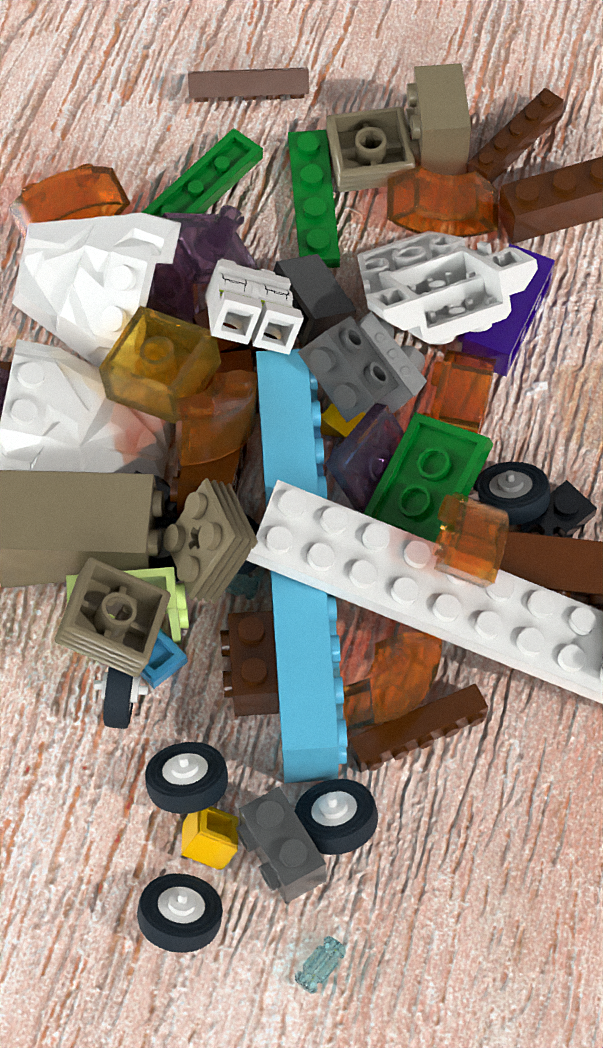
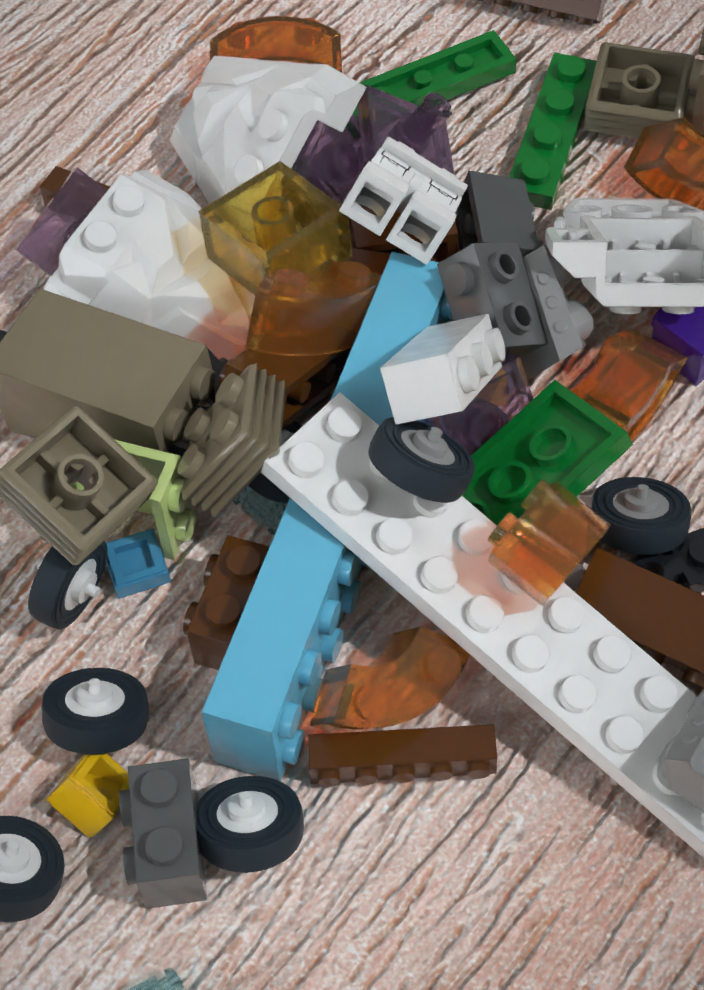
camera: 25 degrees right, 5 degrees down
(349, 436) = (443, 368): none -> white brick
(364, 512) = (421, 460): none -> black wheel

